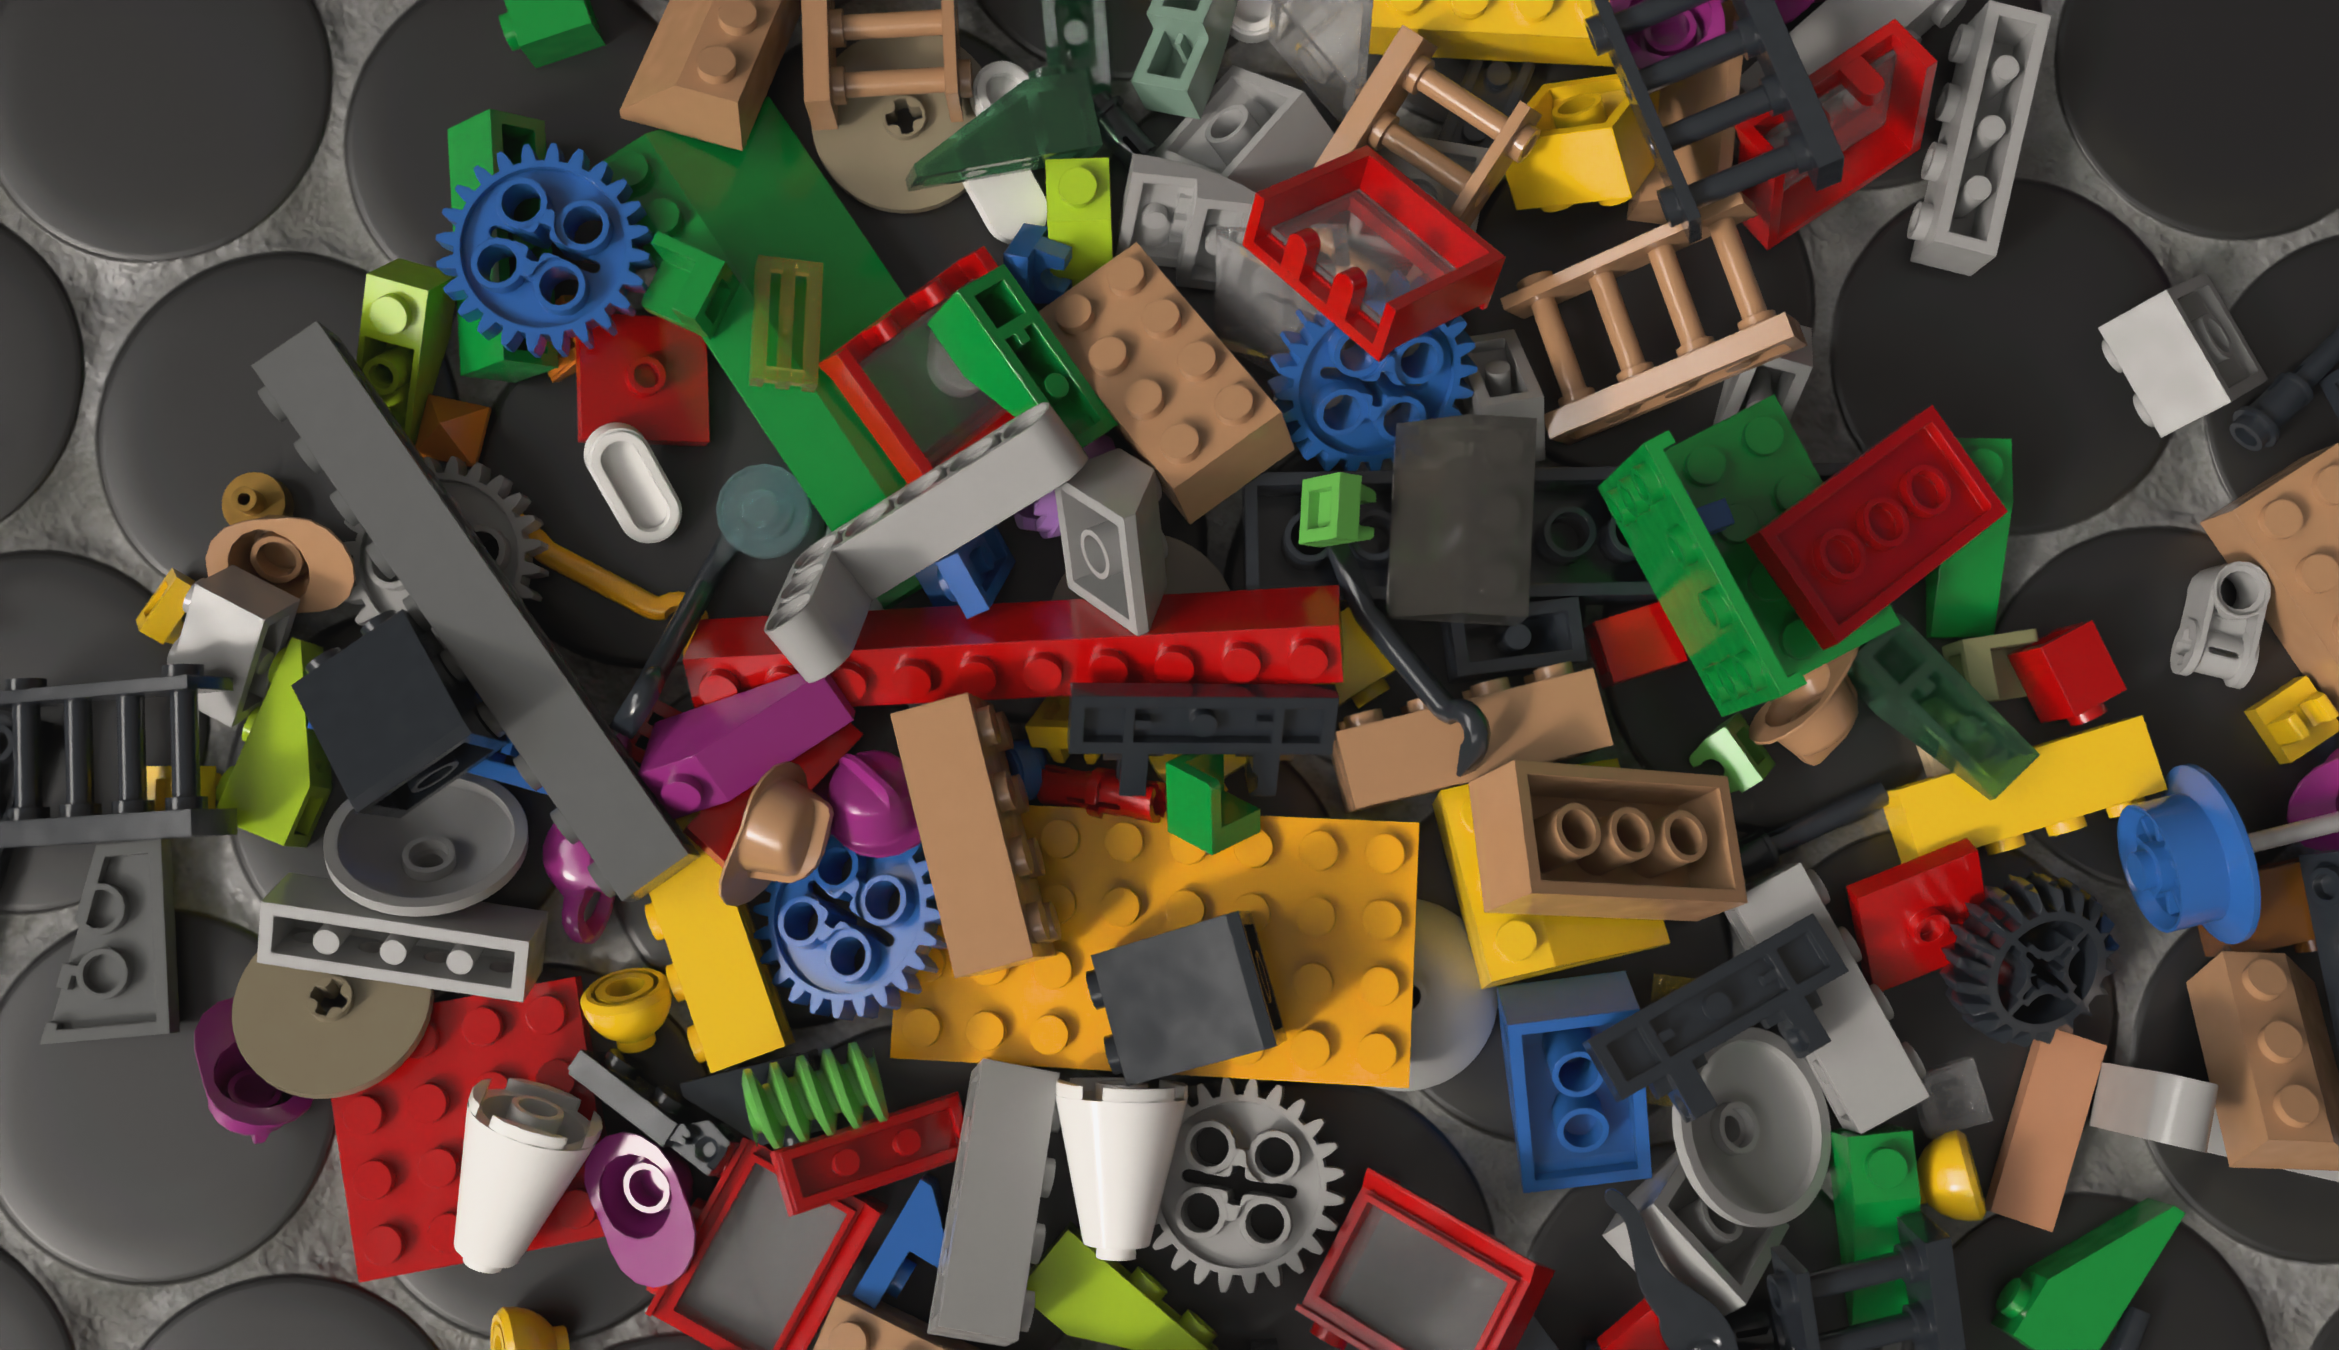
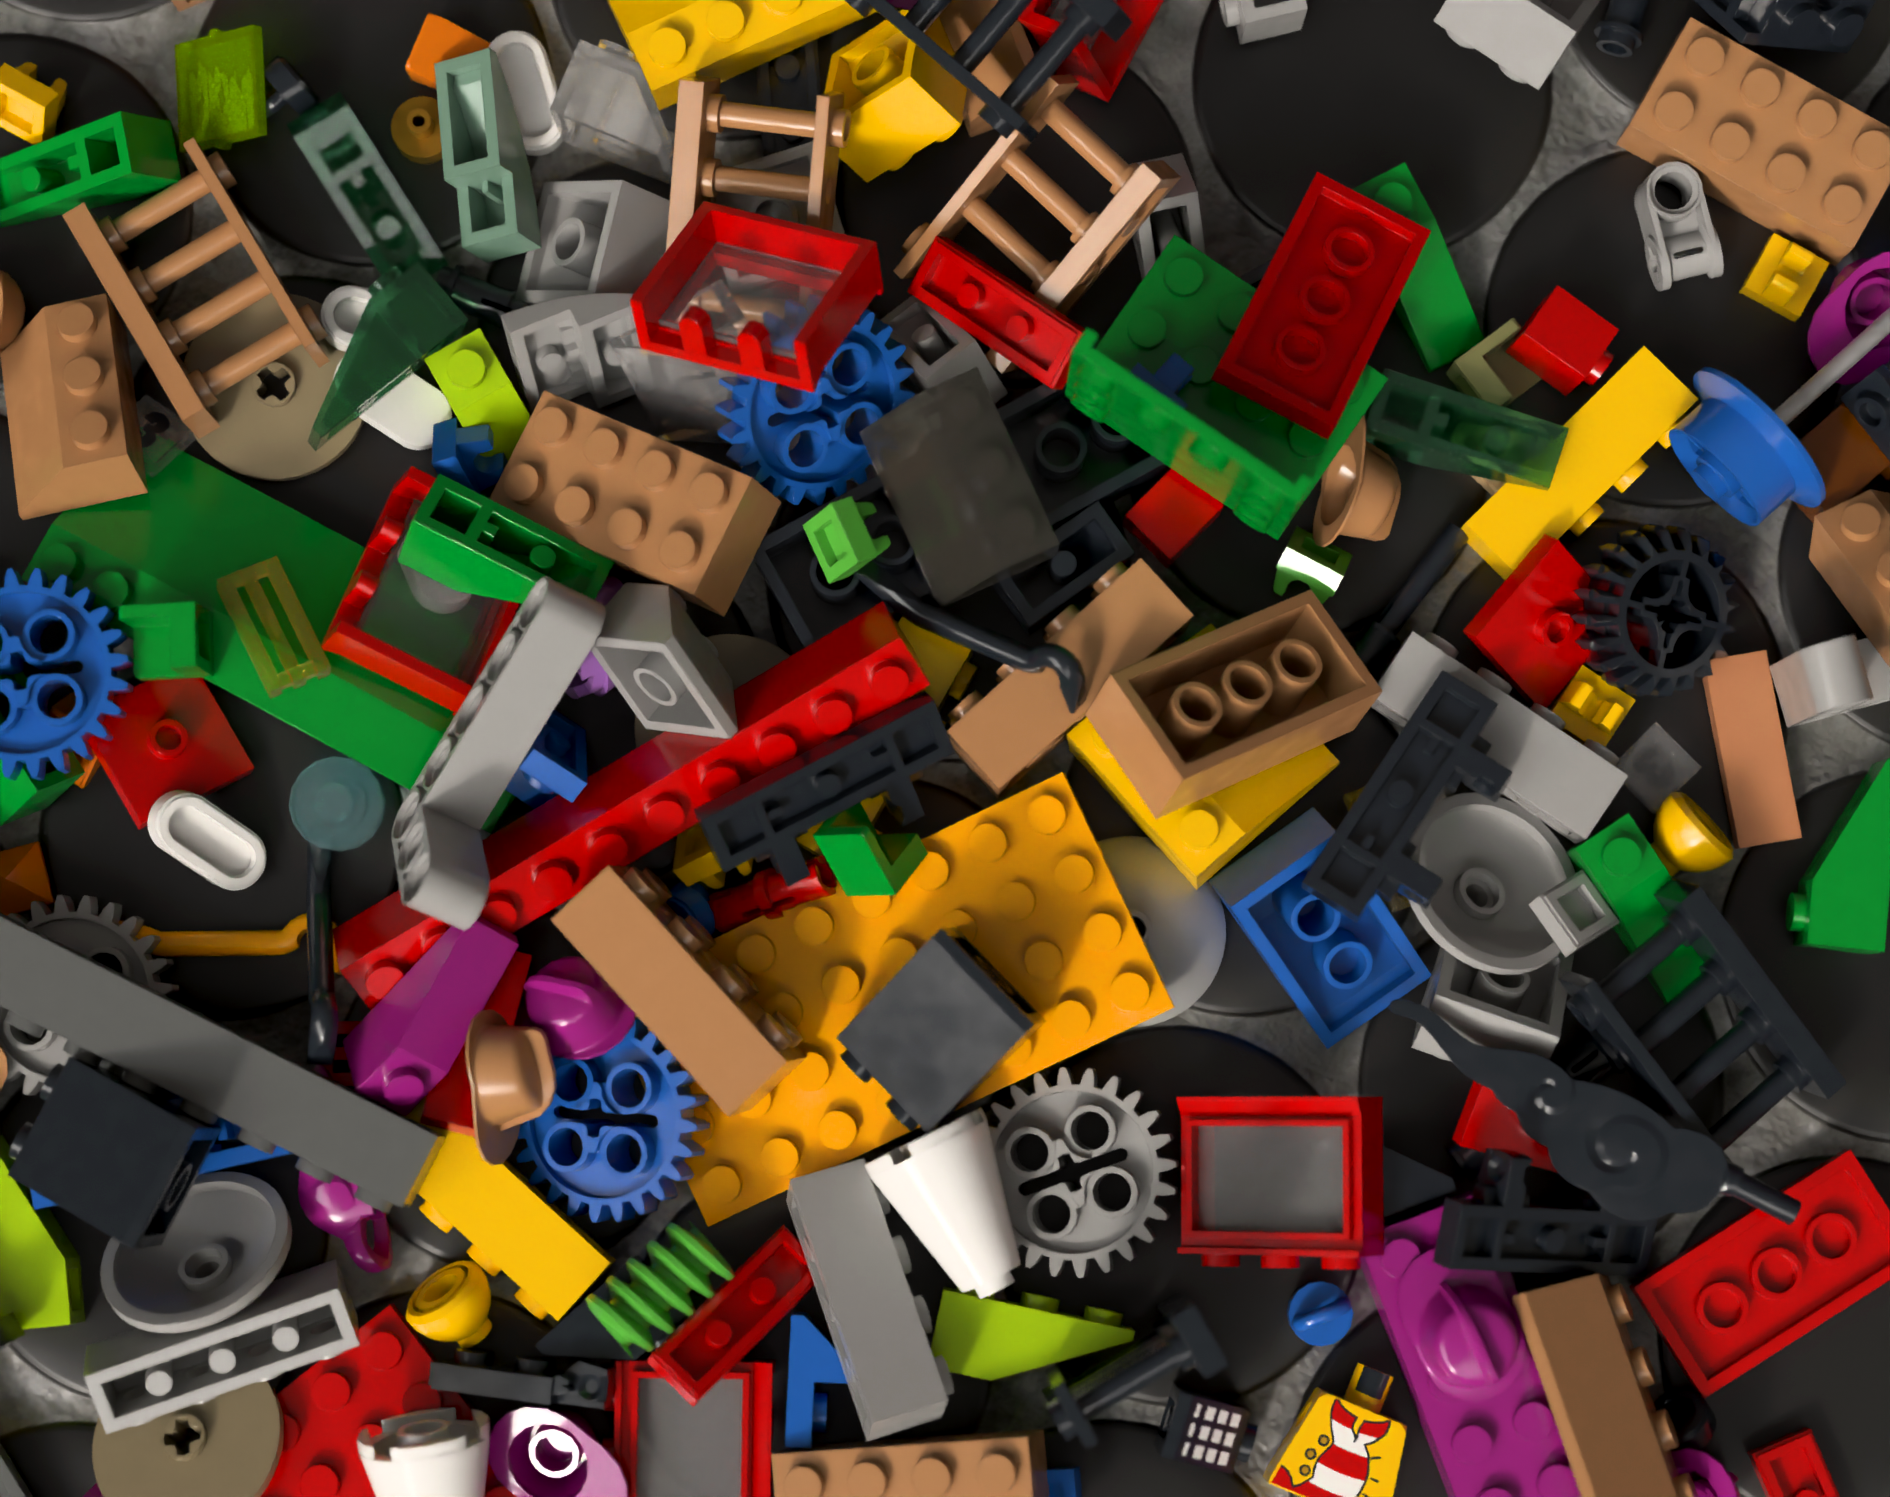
camera: 25 degrees left, 0 degrees up
(782, 110) = (161, 434): none -> clear tile
(1577, 382) = (997, 311): none -> red tile
(1813, 1194) = (1574, 913): none -> light grey tile
(1922, 1013) = (1591, 707): none -> yellow tile

